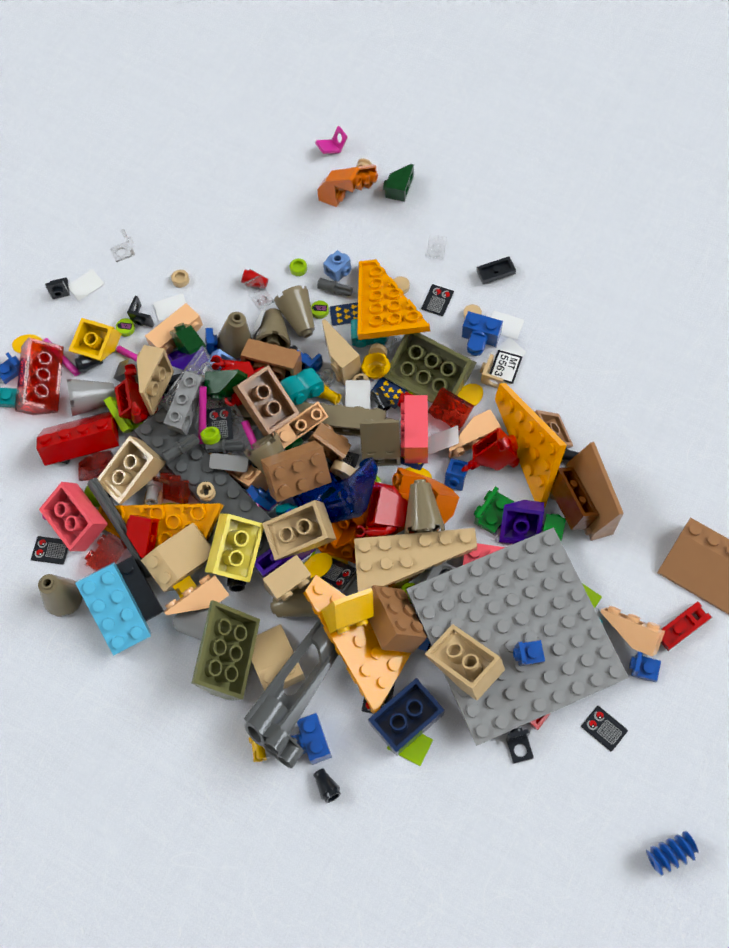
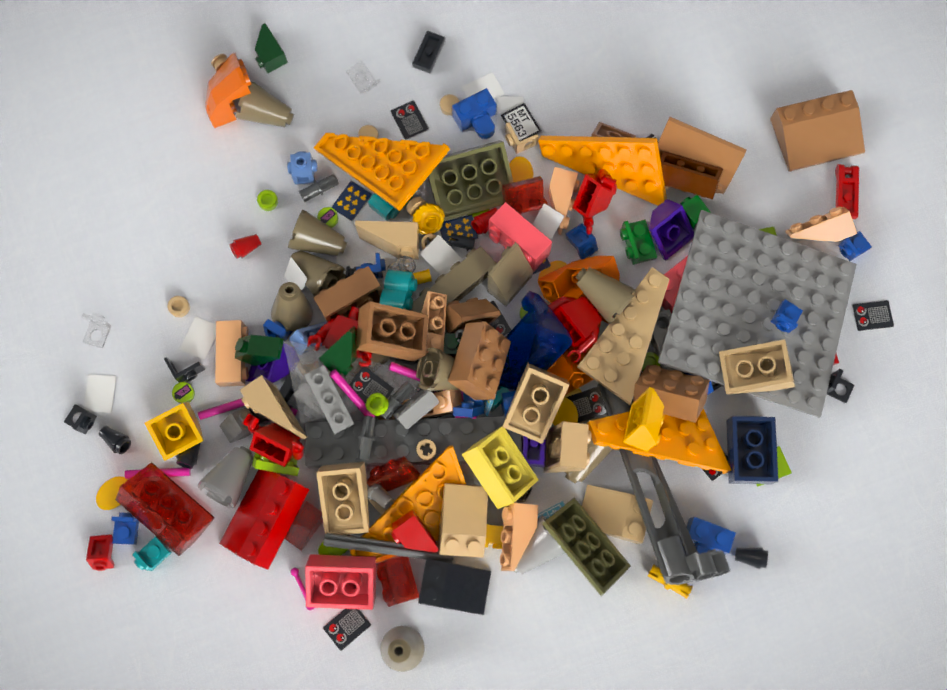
camera: 55 degrees left, 10 degrees up
(61, 316) = (116, 441): none -> black cone
(113, 608) = (463, 611): medium azure brick -> none
(261, 297) = (267, 254): clear bracket -> none
(332, 145) = (170, 69): dark pink bracket -> none
(342, 469) = (506, 322): tan beam -> none
(355, 210) = (264, 108): none -> dark tan cone

